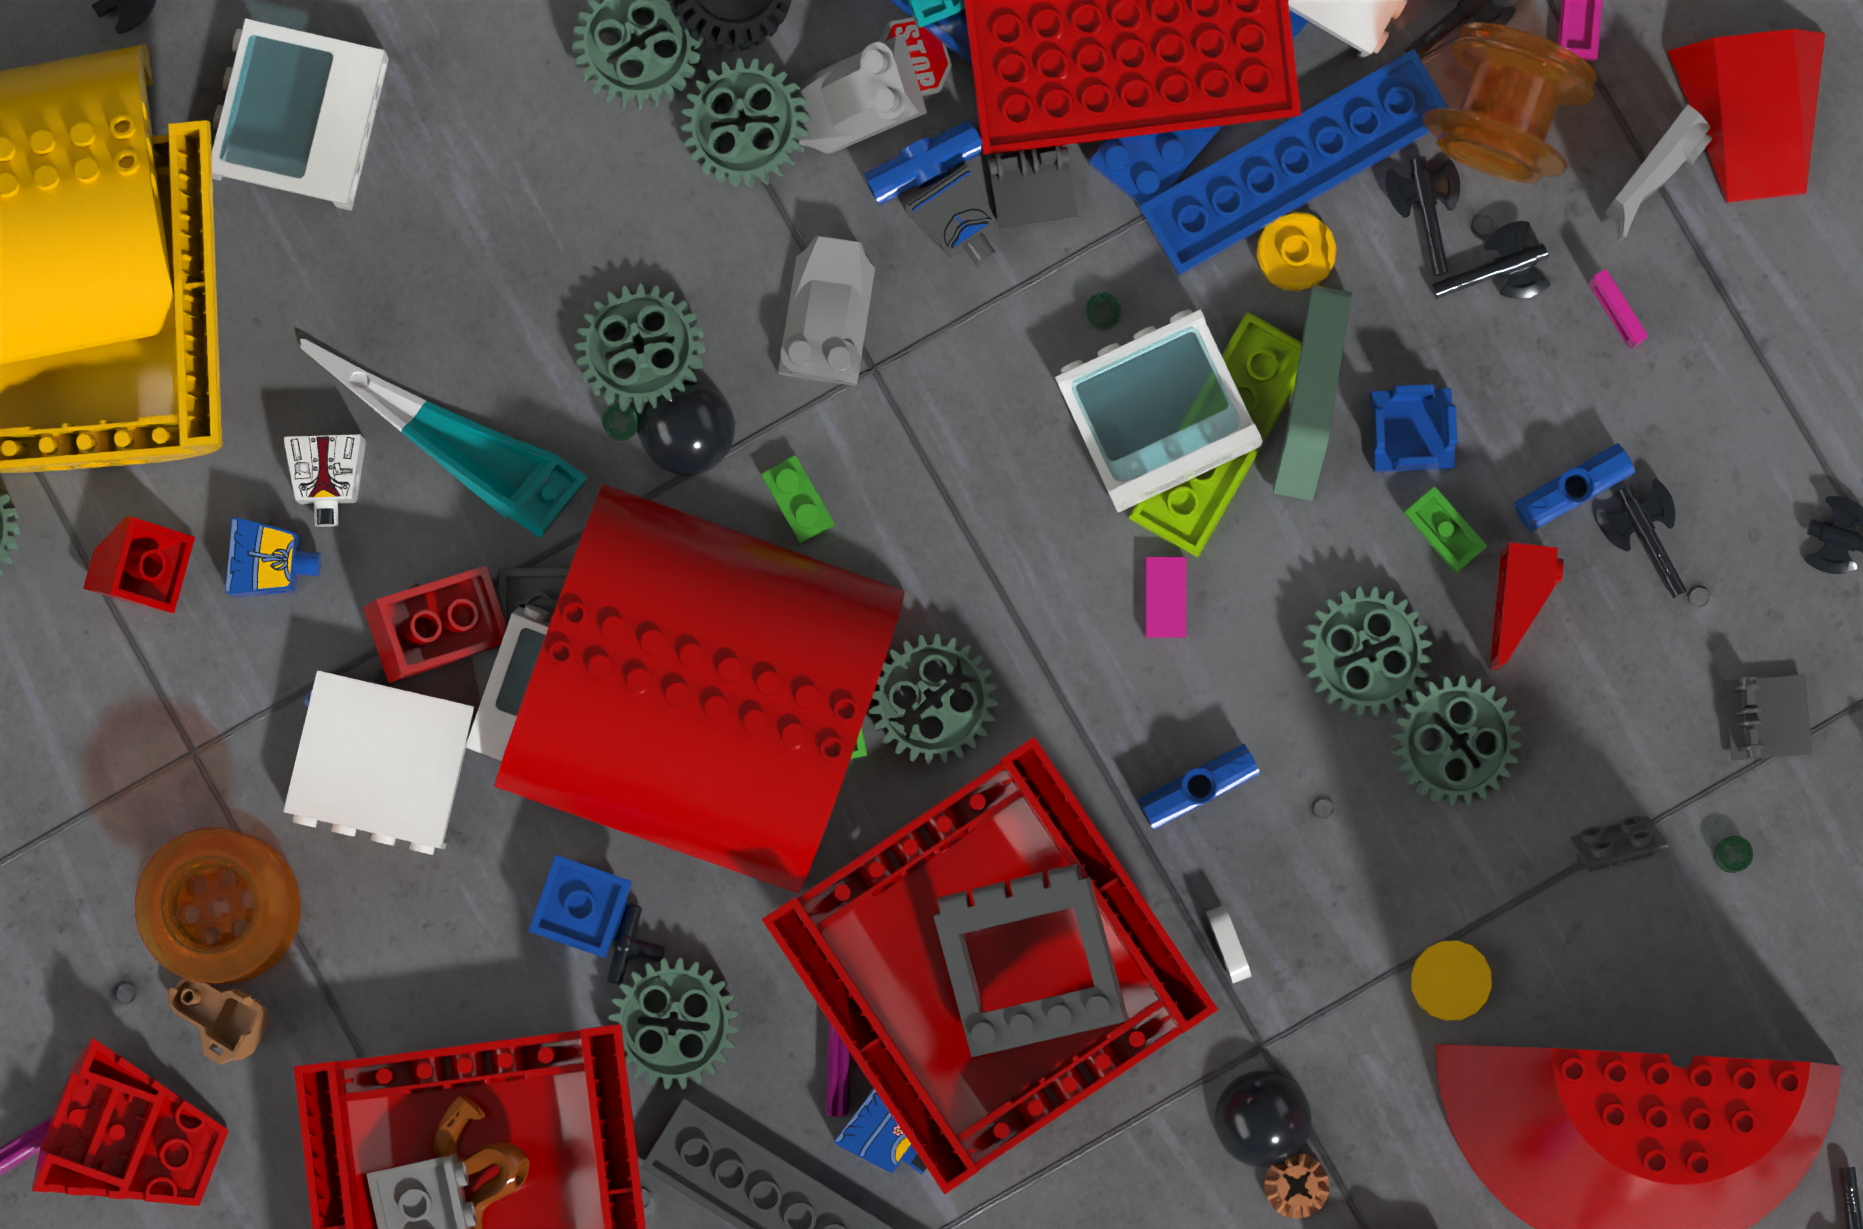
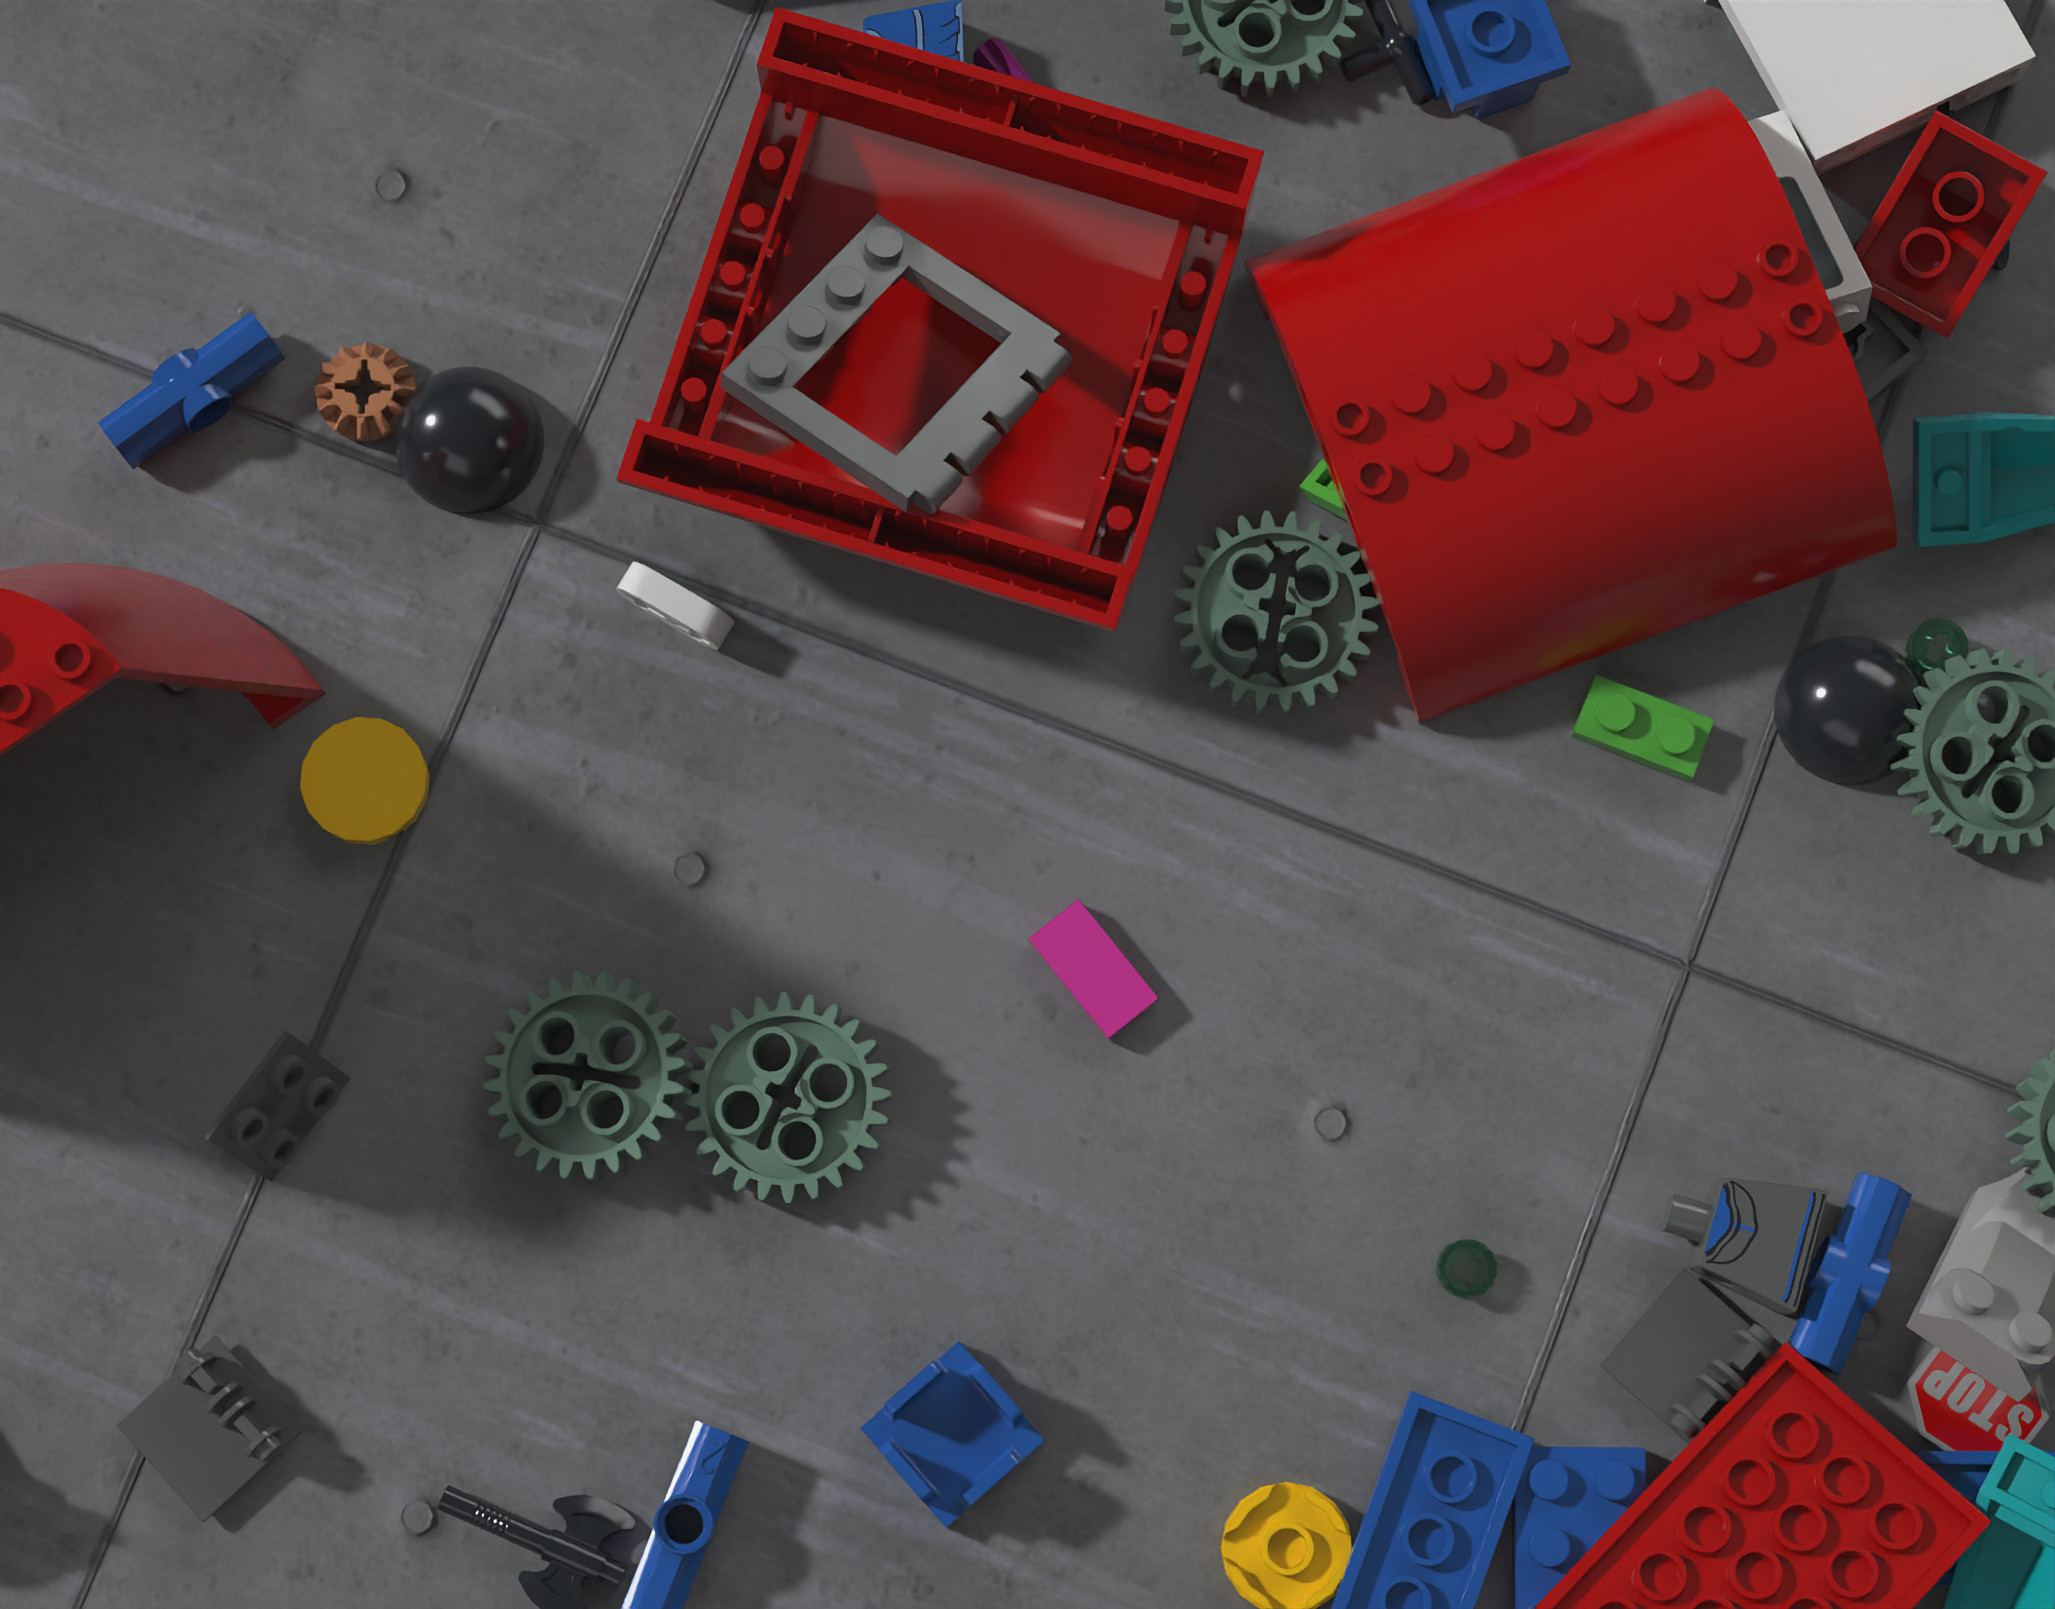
camera: 135 degrees right, 5 degrees down
(828, 312) = (1802, 986): light grey slope -> none
(1158, 409) = (1294, 1195): clear light blue panel -> none
(1222, 774) = (849, 801): blue piece -> none
(1264, 372) = (1189, 1234): lime tile -> none
(1313, 393) = (1121, 1375): sand green beam -> none
(1445, 529) = (809, 1336): bright green plate -> none
(1523, 586) = (644, 1328): red slope -> none
(1746, 853) = (111, 1202): clear green bush -> none

